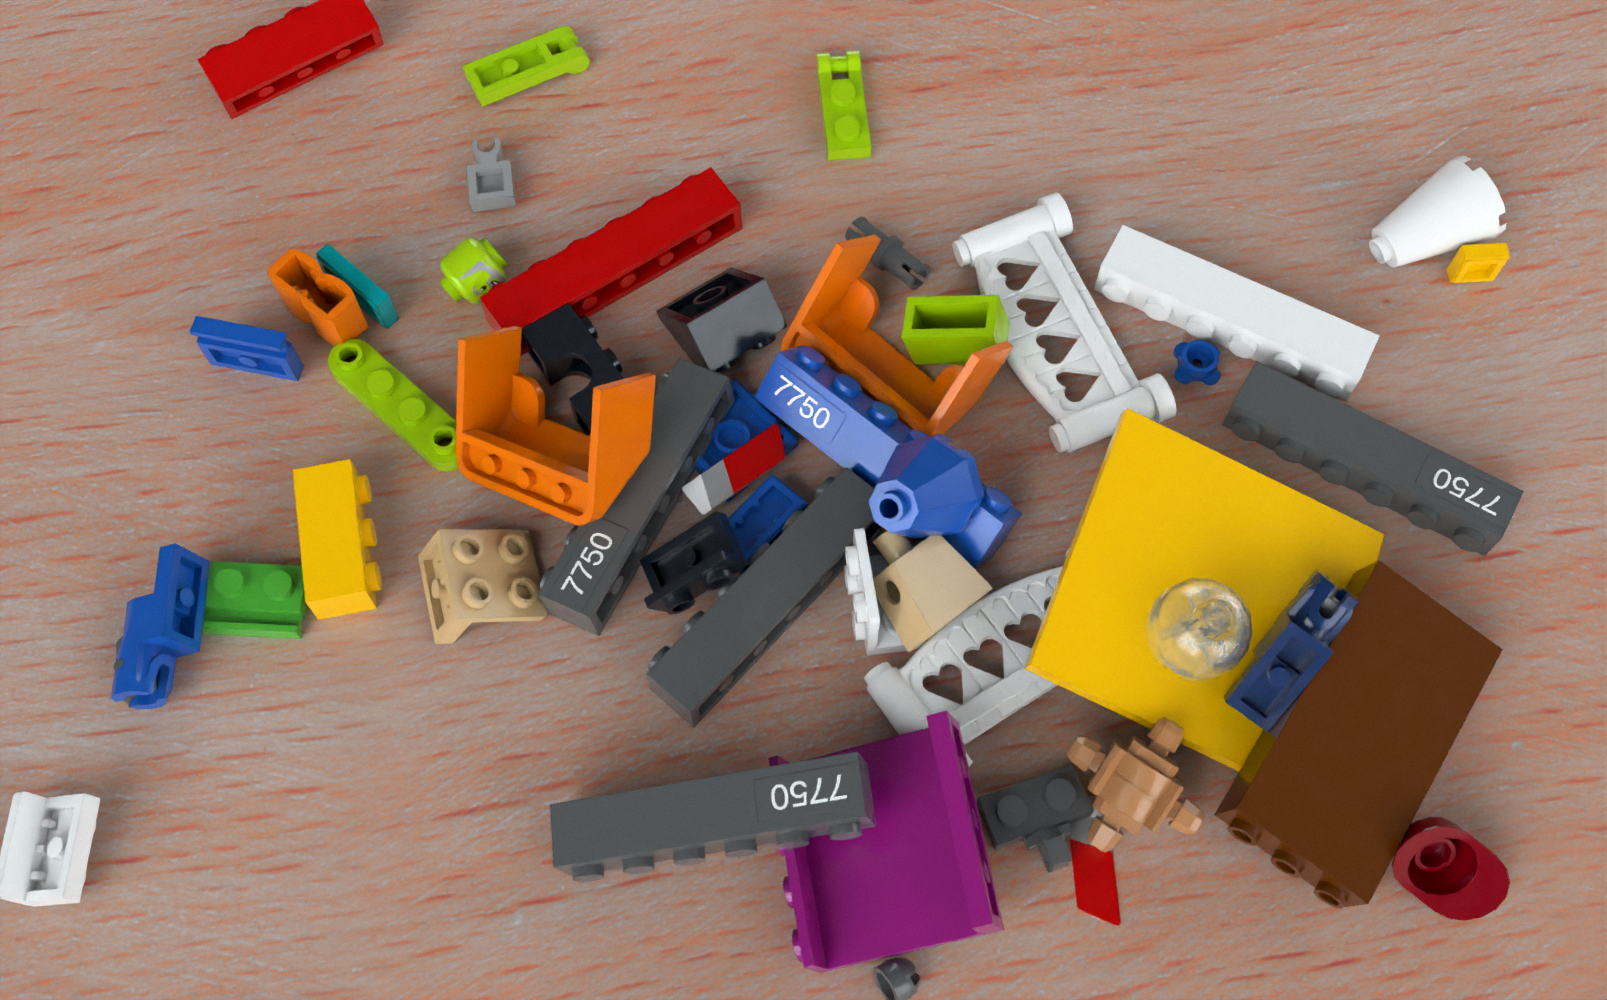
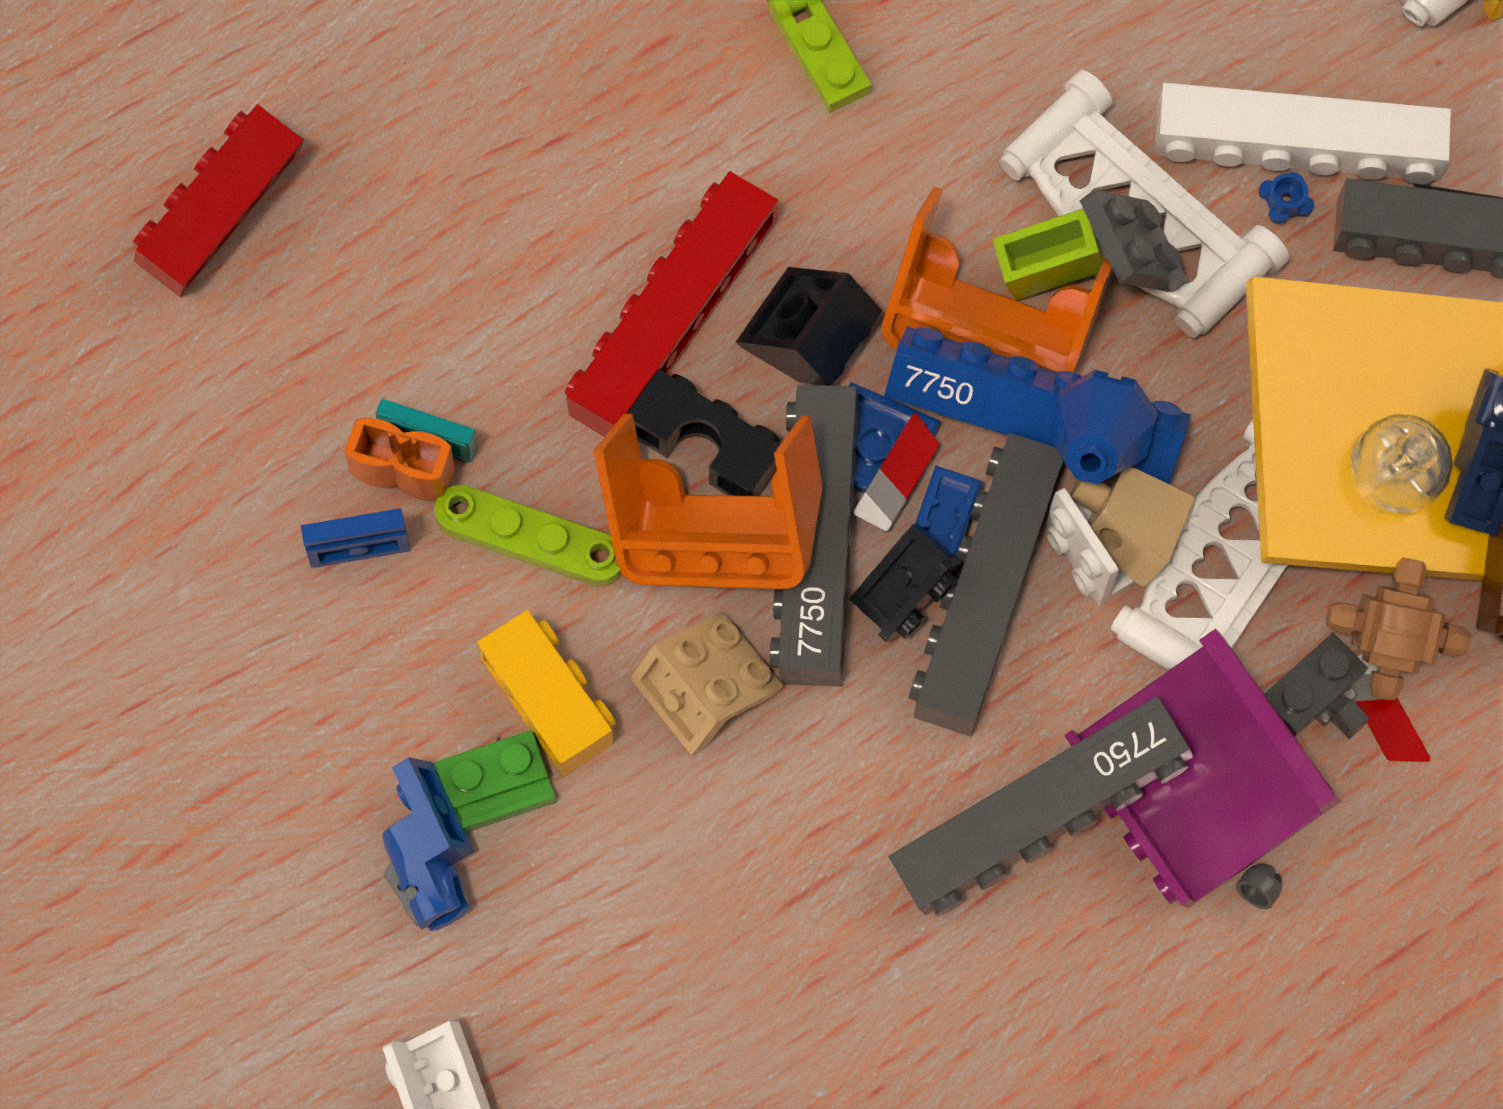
camera: 25 degrees left, 5 degrees up
(472, 269) = (536, 369): lime head -> none
(490, 179) = (499, 266): light grey plate -> none
(526, 65) = (469, 124): lime plate -> none
(891, 254) = (953, 197): dark grey pin -> none
(1032, 342) = (1134, 241): none -> dark grey plate

